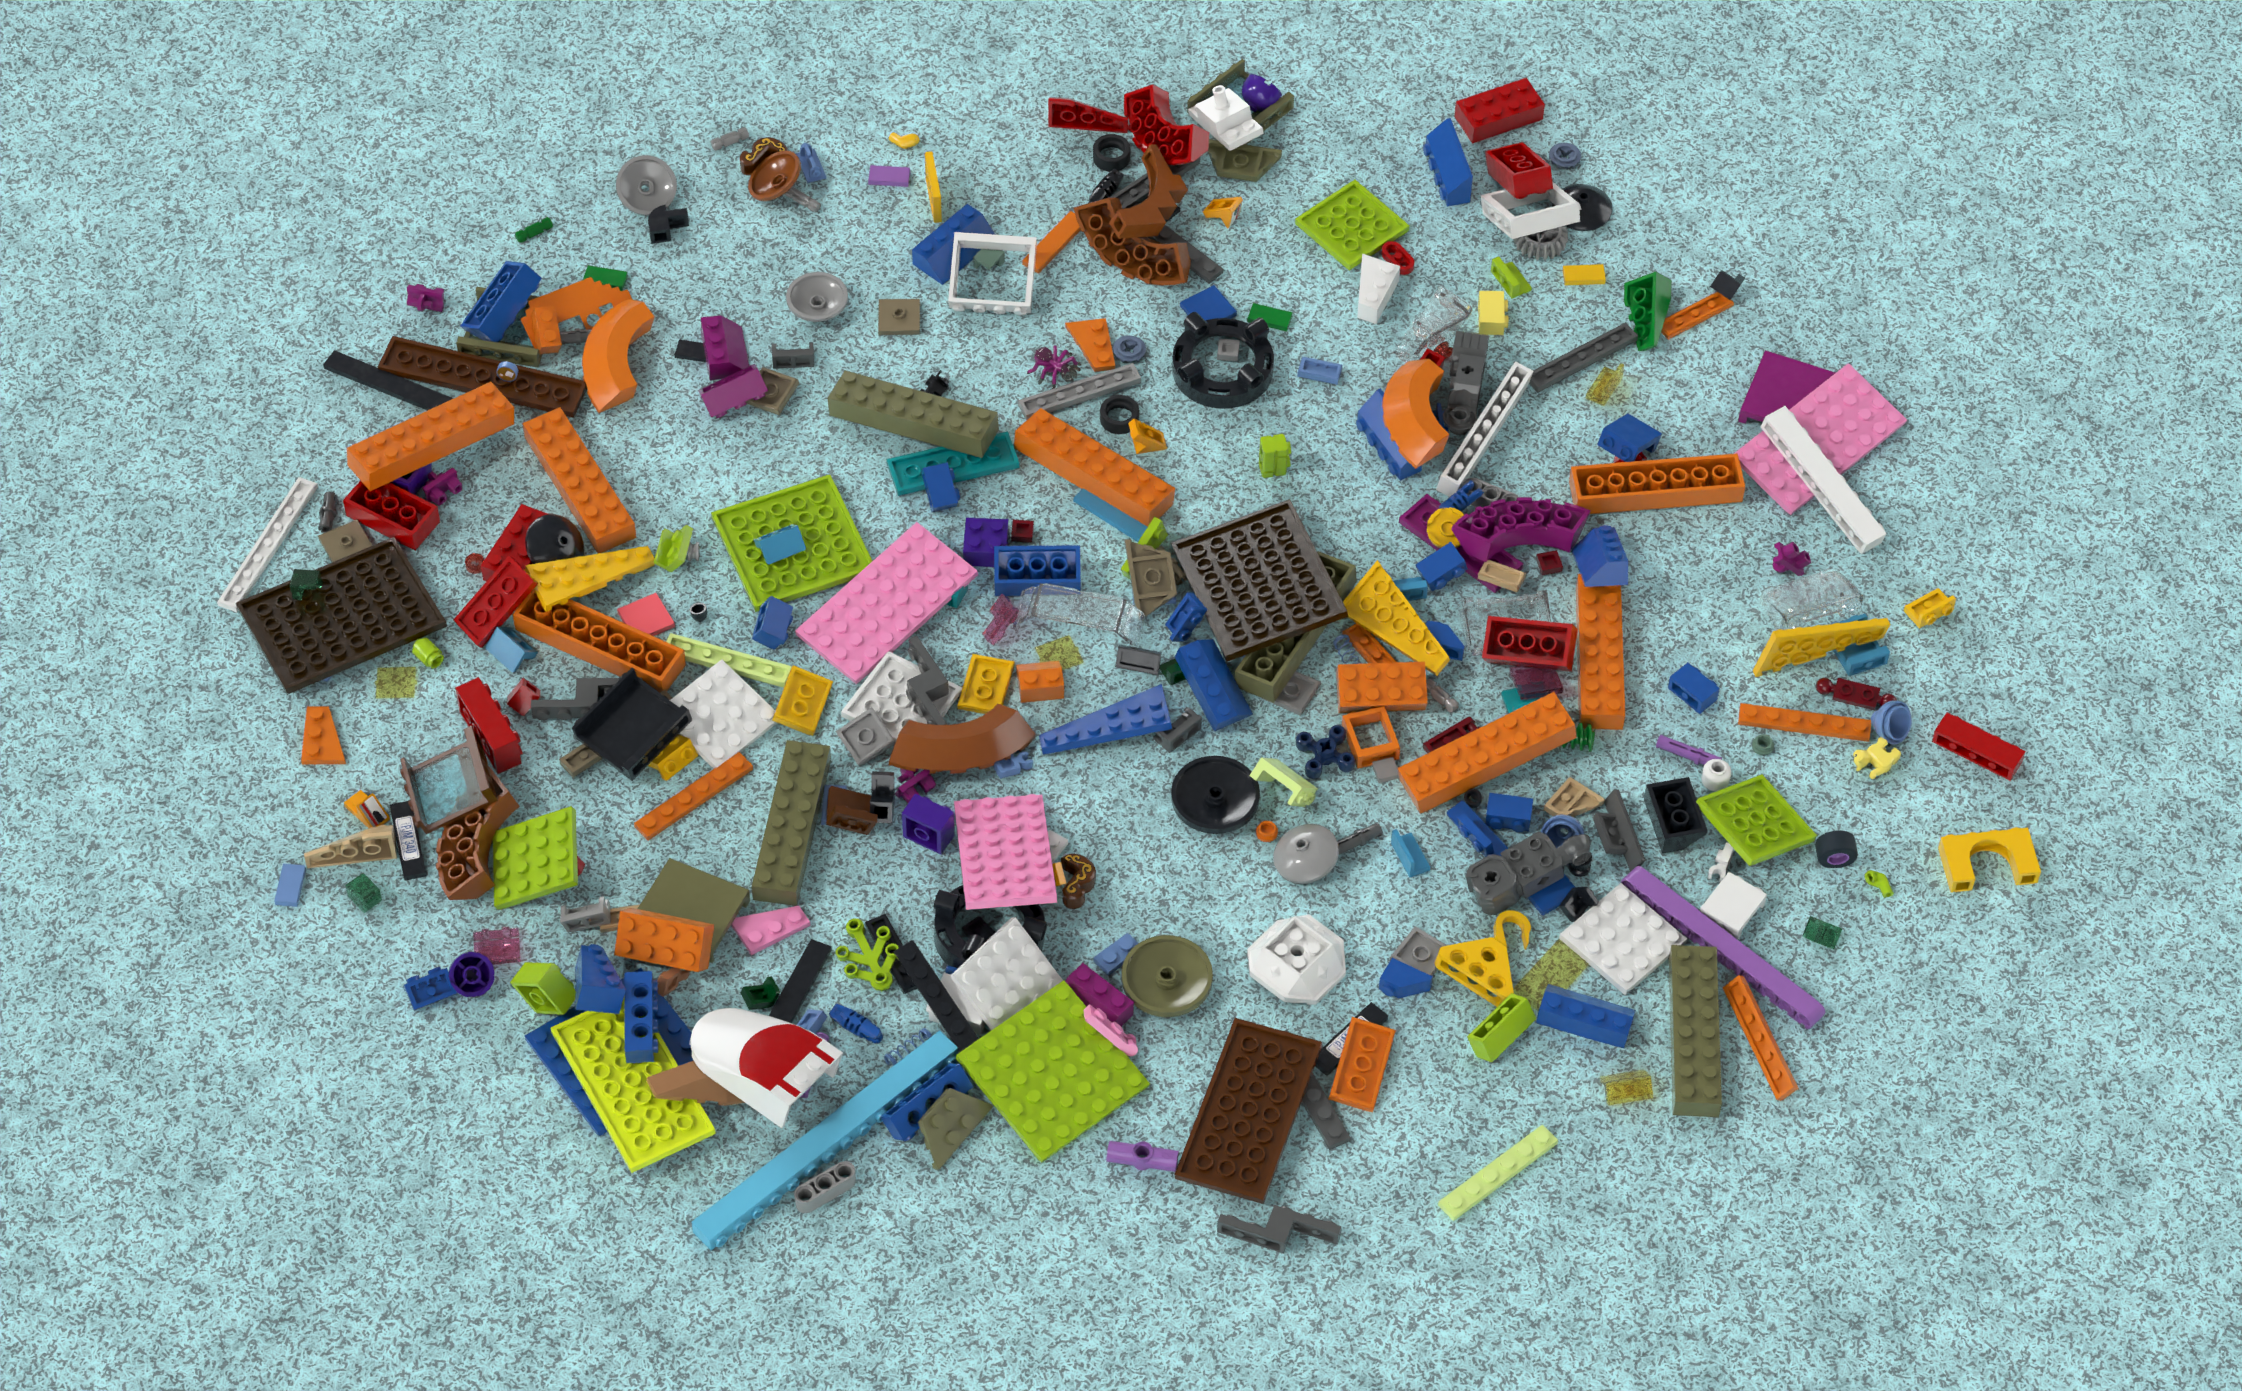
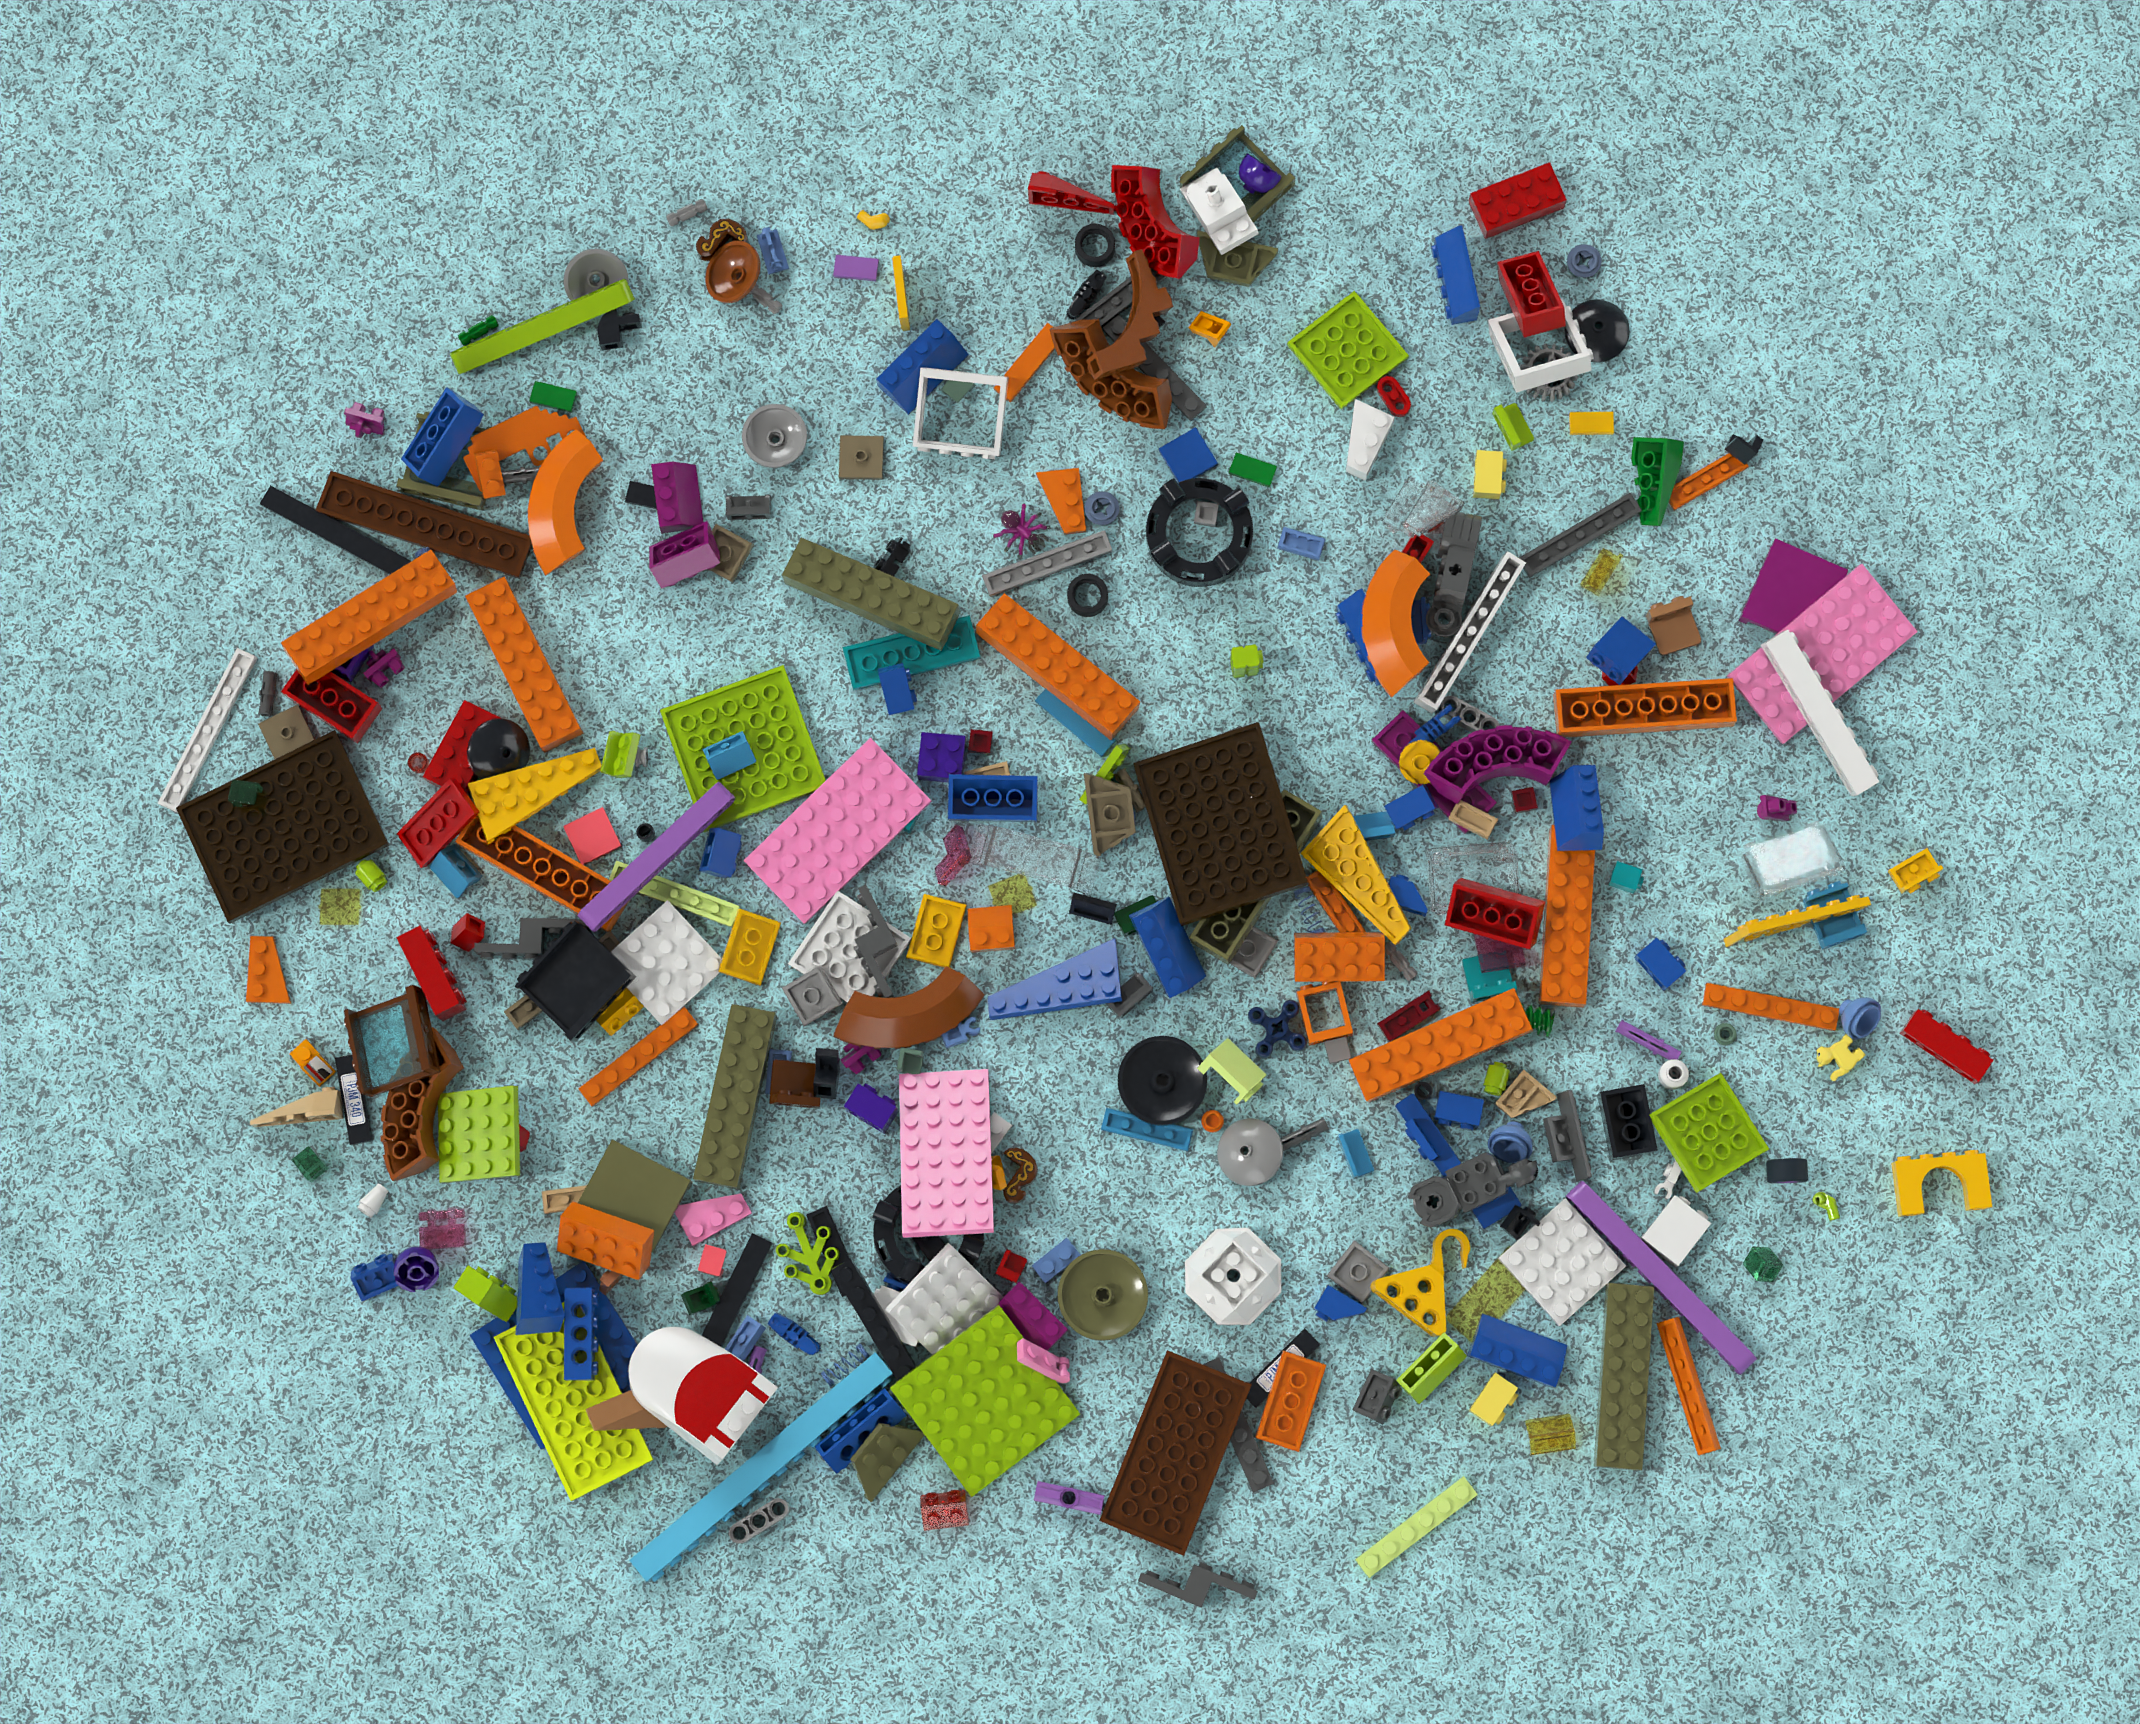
camera: 10 degrees right, 25 degrees up
(290, 885) = (238, 1148): medium blue tile -> none
(425, 924) = (373, 1200): none -> white cone
(507, 371) = (449, 526): tile -> none
(586, 916) = (529, 1198): light grey hinge -> none
(594, 220) = (542, 326): none -> lime beam
(710, 619) = (656, 857): none -> medium lavender beam
(771, 962) = (712, 1261): none -> coral panel
(965, 786) = (910, 1061): none -> sand green panel
(1015, 1174) = (944, 1510): none -> clear red bracket
(1070, 958) = (1011, 1266): none -> red panel
(1146, 437) = (1114, 627): light orange slope -> none
(1185, 617) = (1143, 864): blue bracket -> none
(1202, 842) = (1130, 1126): none -> dark azure tile
(1449, 1058) = (1377, 1396): none -> dark grey bracket
(1543, 786) = (1496, 1079): none -> lime brick
(1566, 1055) = (1493, 1400): none -> light yellow brick
(1653, 619) = (1626, 877): none -> teal brick
(1676, 420) = (1673, 625): none -> medium nougat bracket
(1853, 693) = (1827, 975): dark red plate -> none

